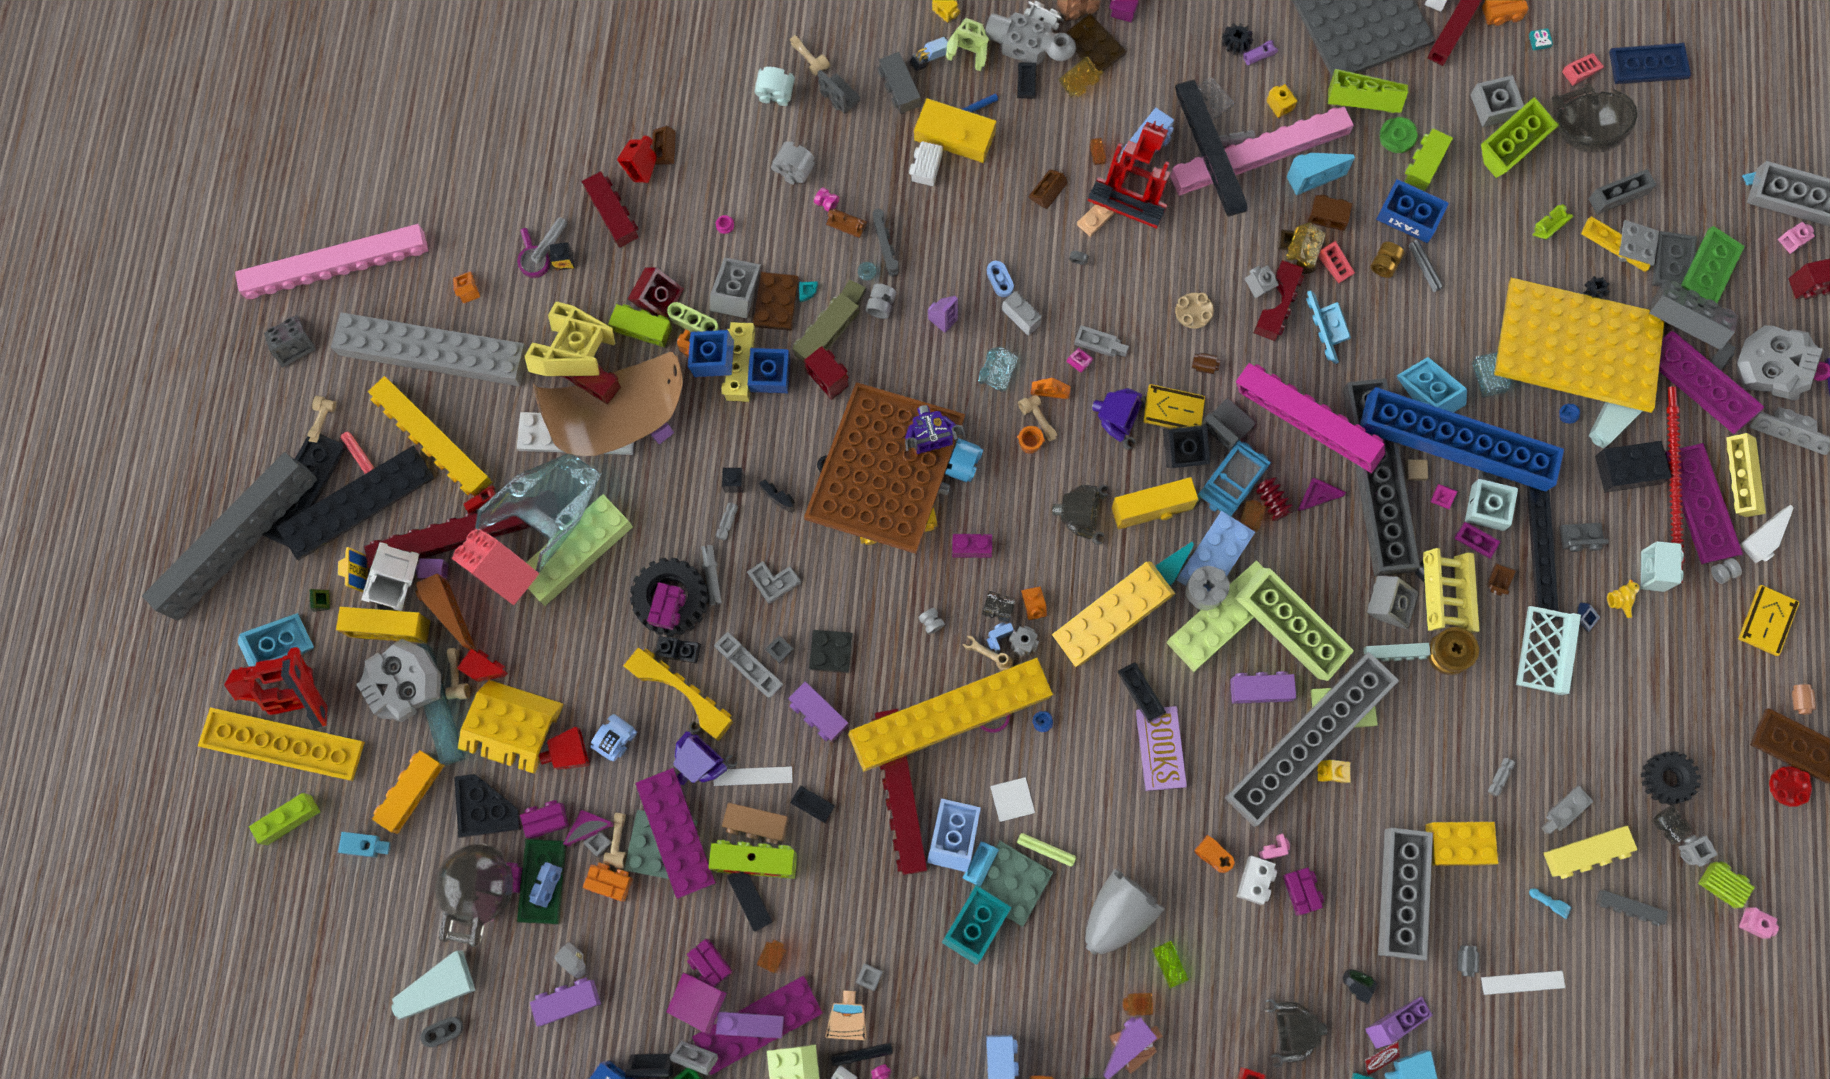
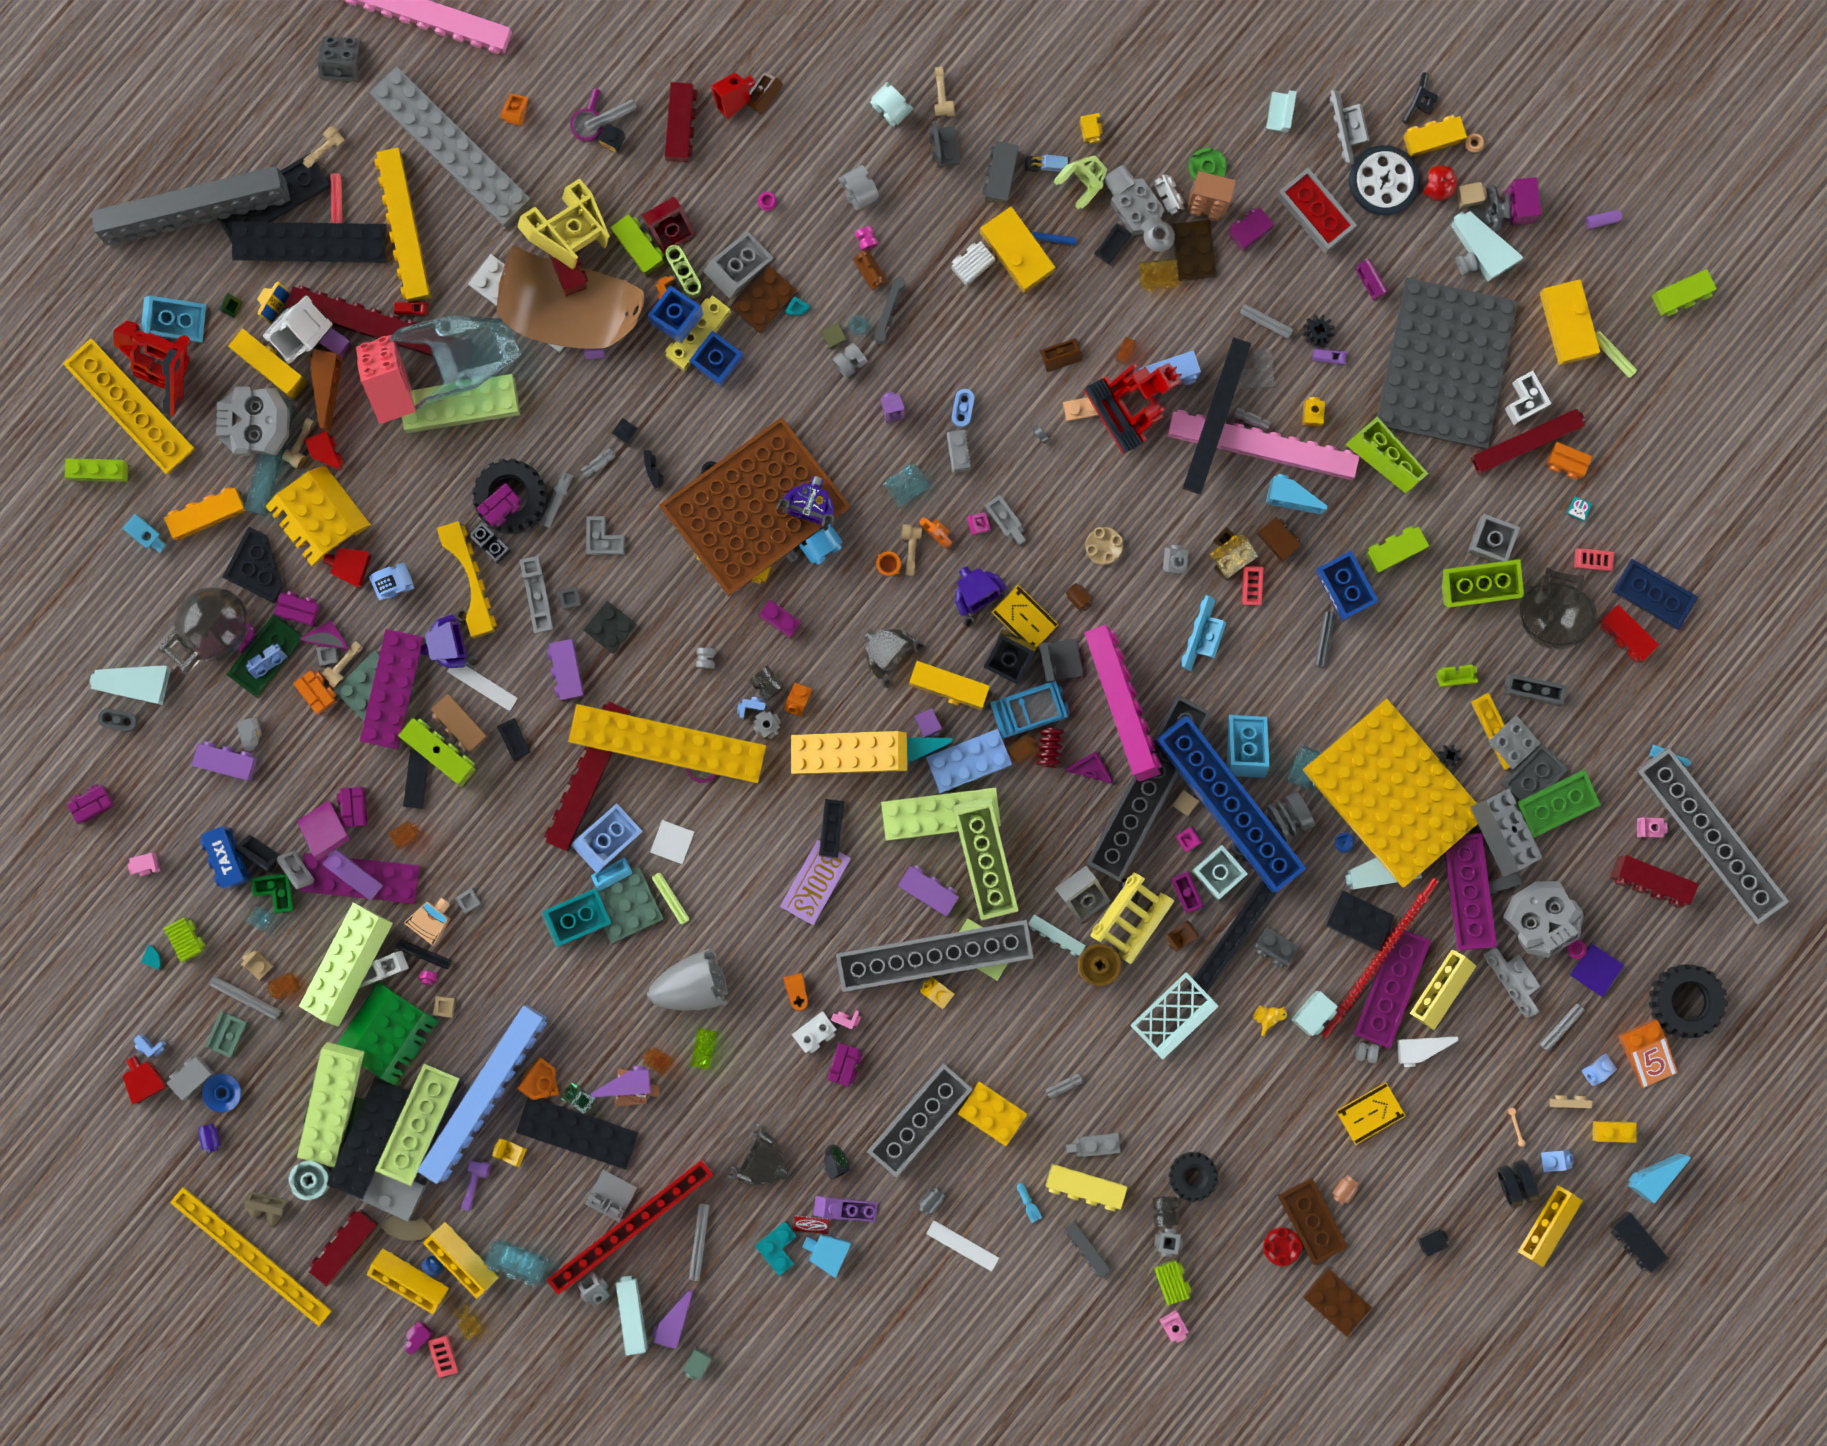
camera: 25 degrees right, 10 degrees up
(827, 327) = (787, 354): olive brick -> none
(827, 372) = (761, 393): dark red brick -> none
(991, 654) = (743, 734): tan brick -> none
(1042, 721) = (737, 798): blue tile -> none
(1158, 547) = (928, 723): none -> medium lavender brick
(1190, 59) = (1266, 321): none -> light grey axle
(1215, 579) = (935, 772): light grey brick -> none
(1271, 320) = (1159, 599): dark red arch -> none
(1387, 259) = (1293, 613): pearl gold wheel -> none
(1398, 135) = (1391, 510): bright green tile -> none
(1515, 414) = (1290, 816): none -> dark grey wheel
(1588, 616) = (1228, 1011): dark blue slope -> none
(1659, 103) = (1628, 634): none -> red brick

